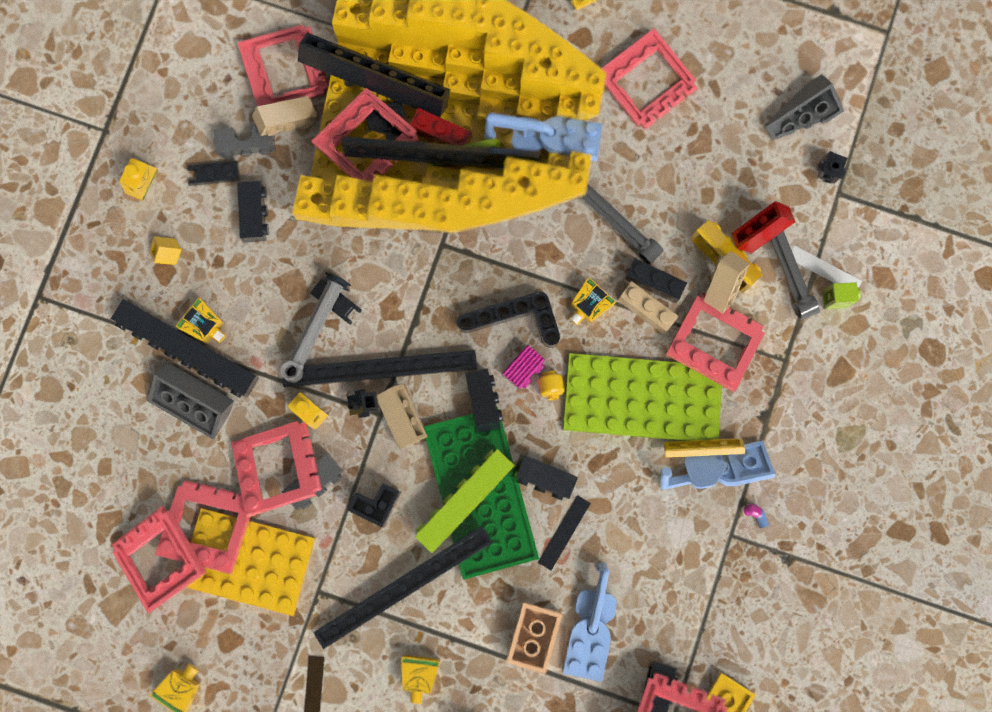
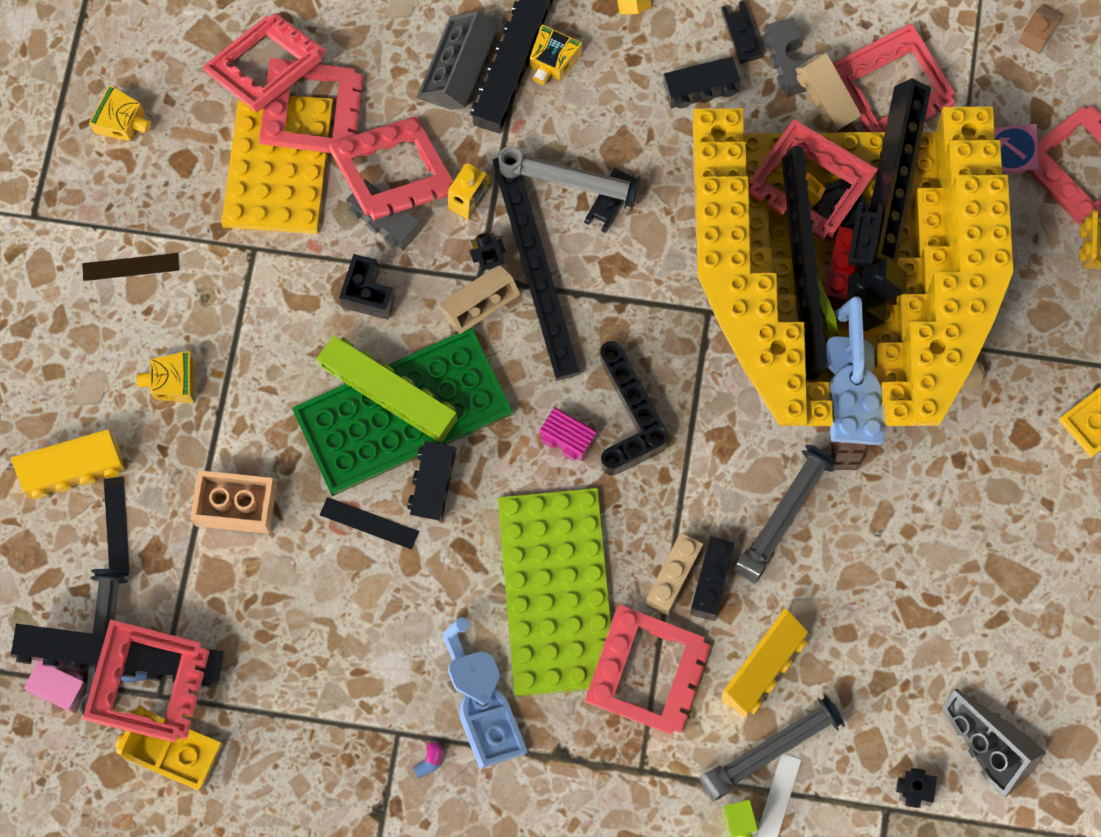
camera: 90 degrees right, 10 degrees down
(403, 587) = (274, 341): black plate -> none
(426, 105) = (865, 236): none -> black hinge
(468, 108) = (875, 287): none -> black brick
(484, 400) = (515, 390): black brick -> none
(551, 385) = (551, 472): yellow head -> none
(589, 650) = (226, 573): light blue plate -> none
(590, 303) = (667, 502): torso -> none
(633, 57) = (1006, 499): coral hinge -> none
(704, 447) = (504, 674): yellow tile -> none
(726, 281) = (723, 659): tan brick -> none
(763, 227) = (808, 698): red brick -> none

